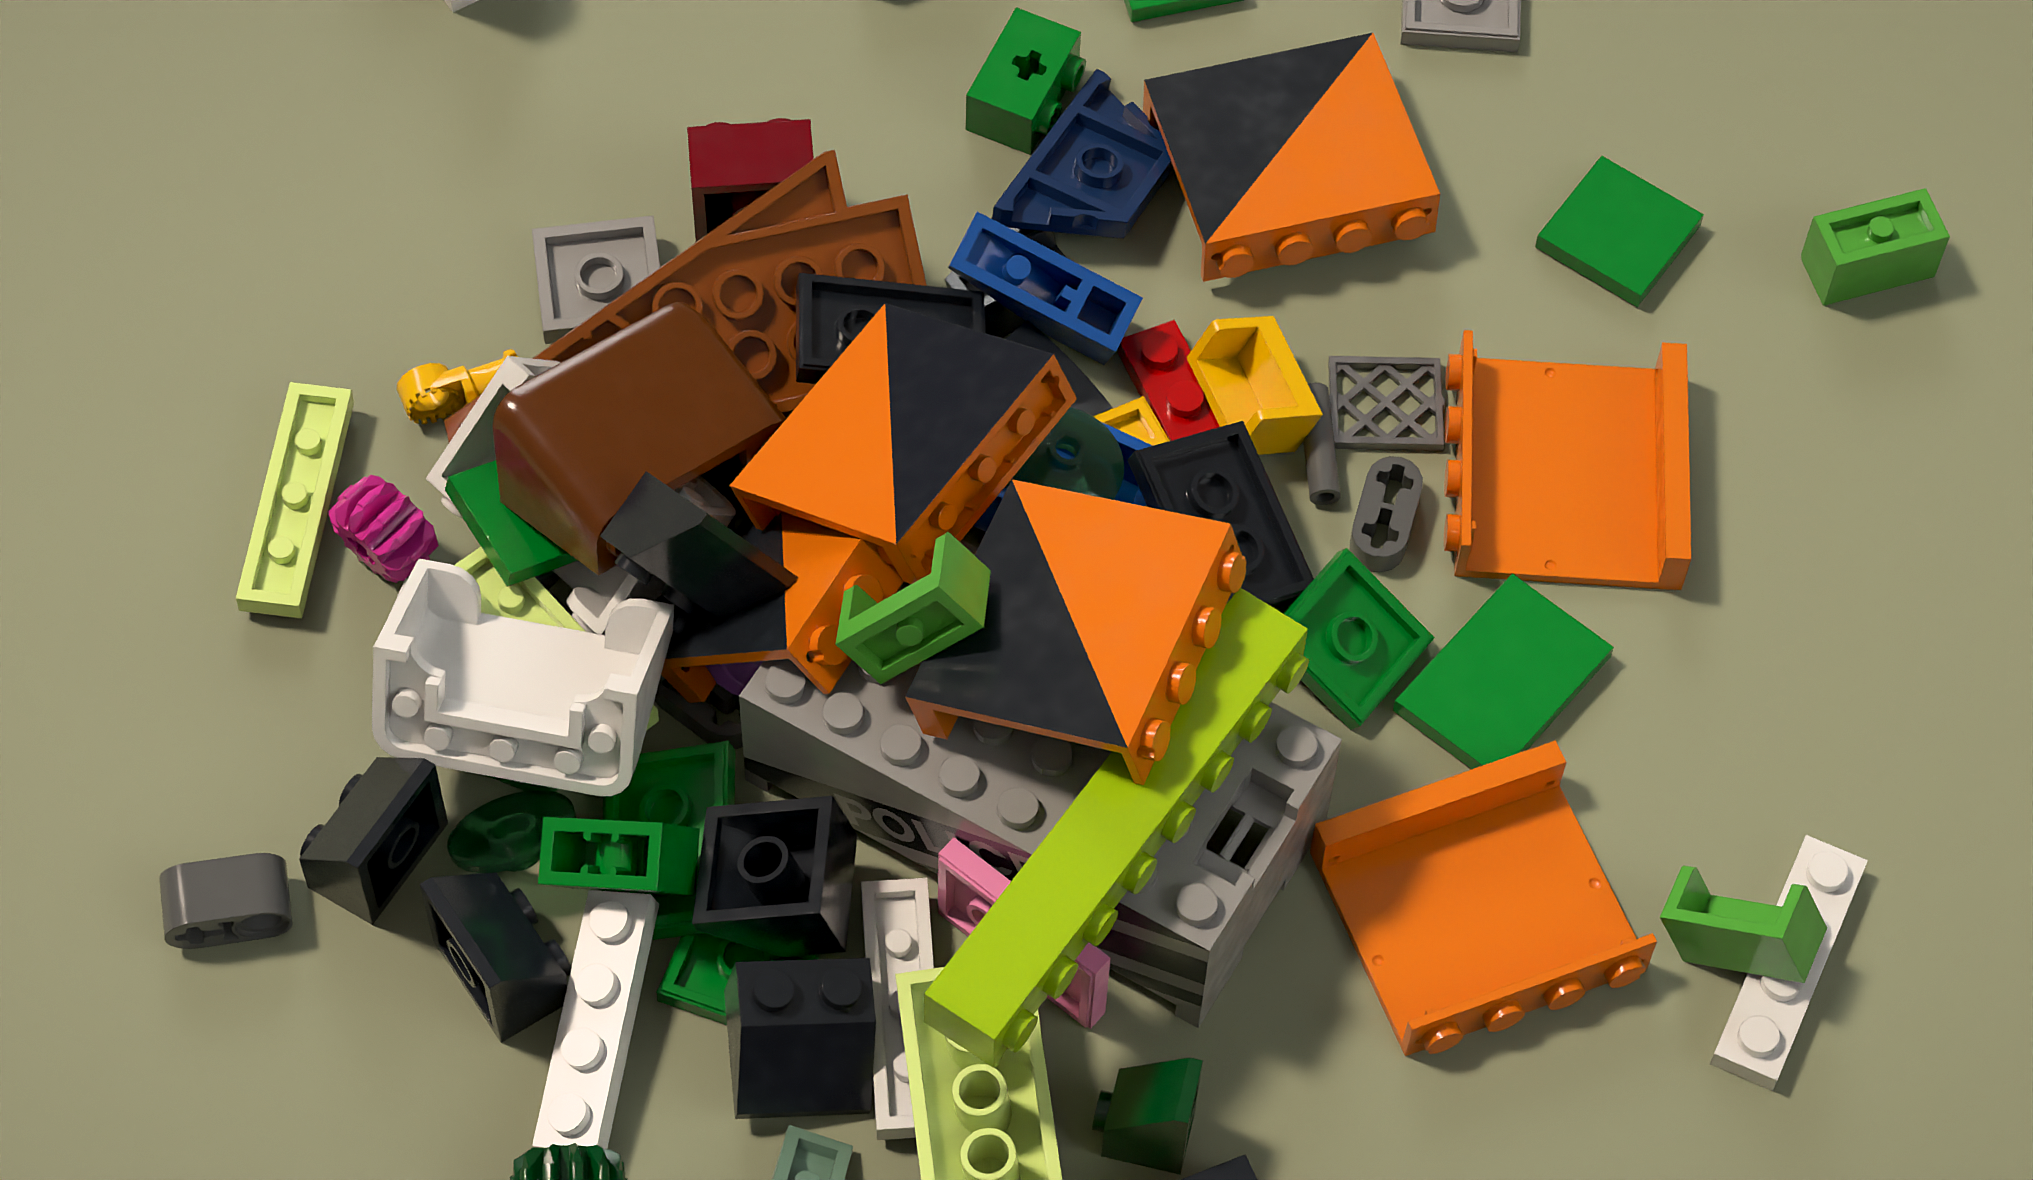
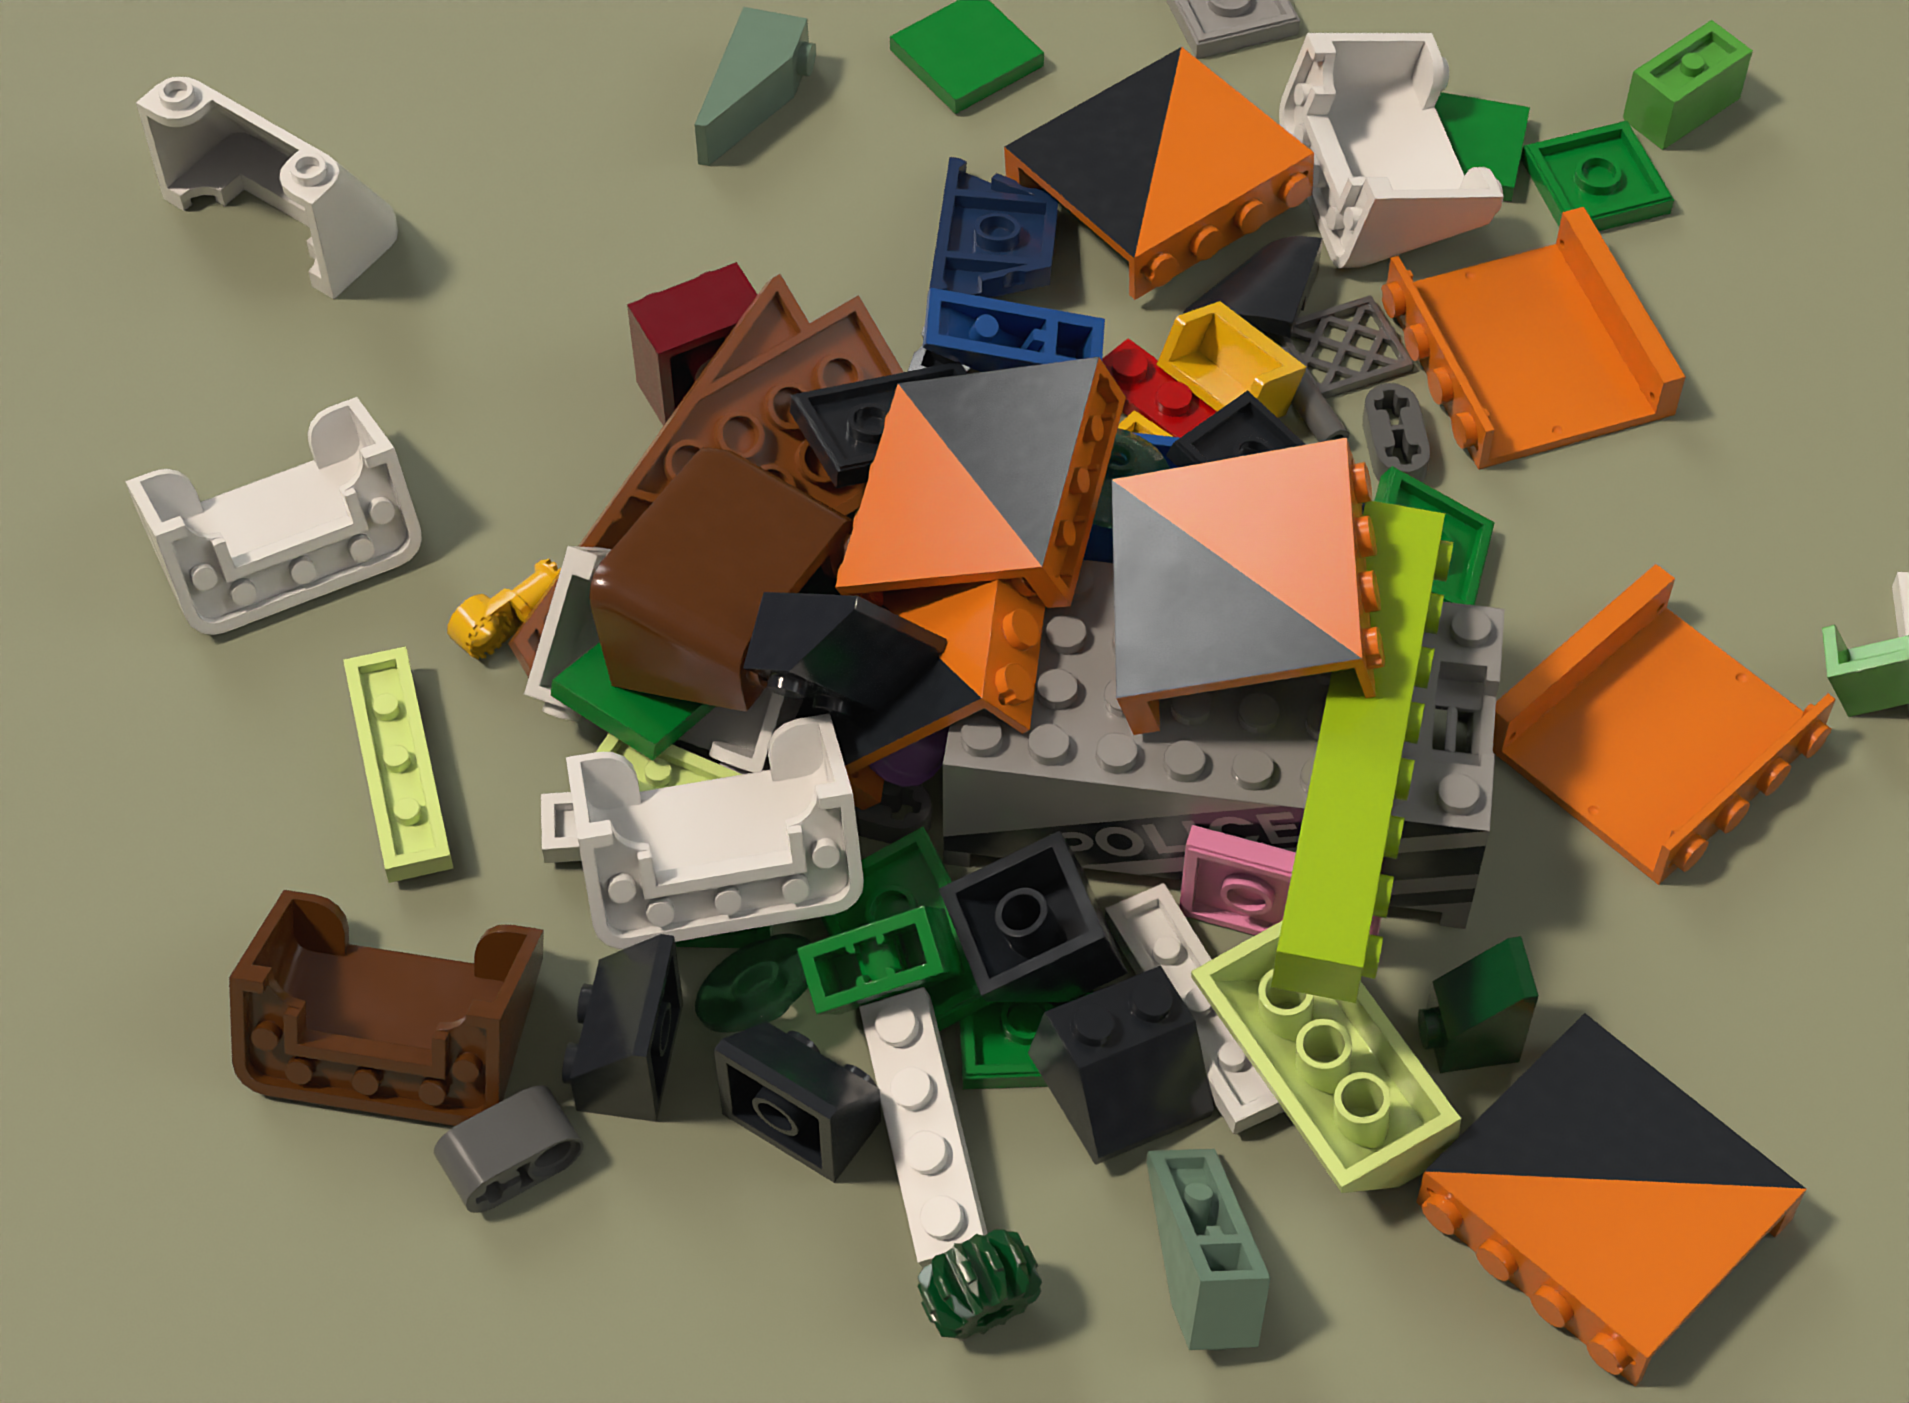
camera: 20 degrees left, 5 degrees down
(165, 738) = (378, 1023): none -> reddish brown windscreen
(290, 236) = (287, 532): none -> white windscreen
(383, 528) = (500, 755): dark pink gear -> none
(589, 267) = (578, 470): light grey plate -> none
(918, 619) = (1097, 624): bright green panel -> none
(1024, 81) = (892, 186): green brick -> none
(1338, 315) = (1270, 284): none -> black slope
(1503, 676) = (1569, 536): green tile -> none
(1521, 207) = (1379, 147): none -> white windscreen
(1736, 313) = (1598, 171): none -> green tile

